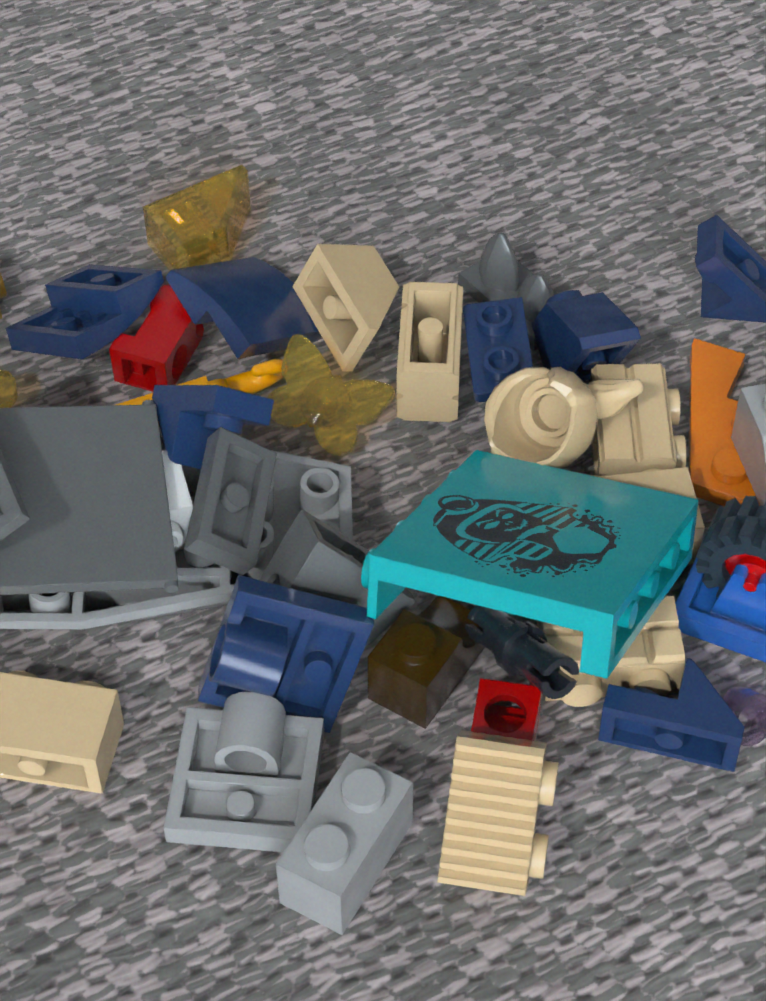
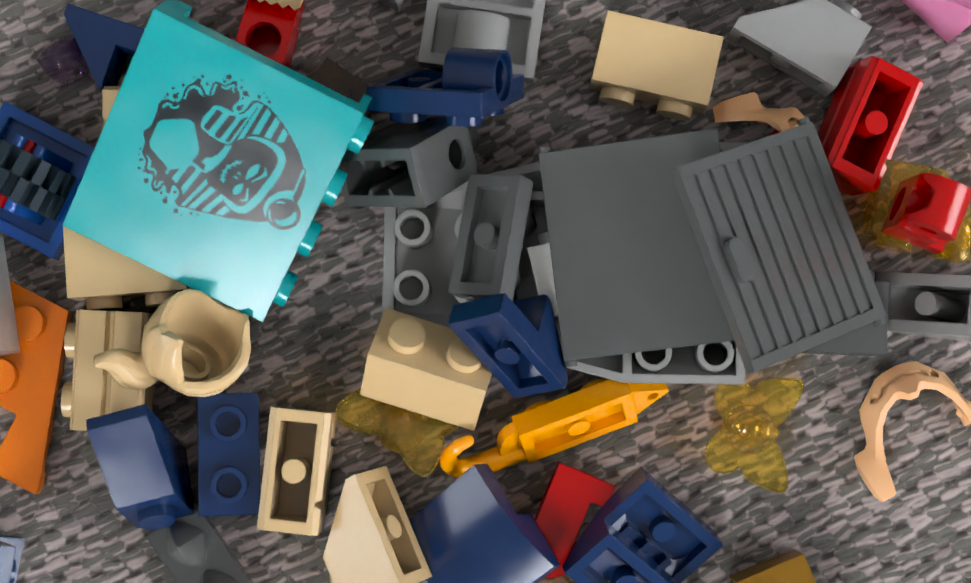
camera: 175 degrees left, 35 degrees up
(309, 423) = (425, 370): none -> tan brick

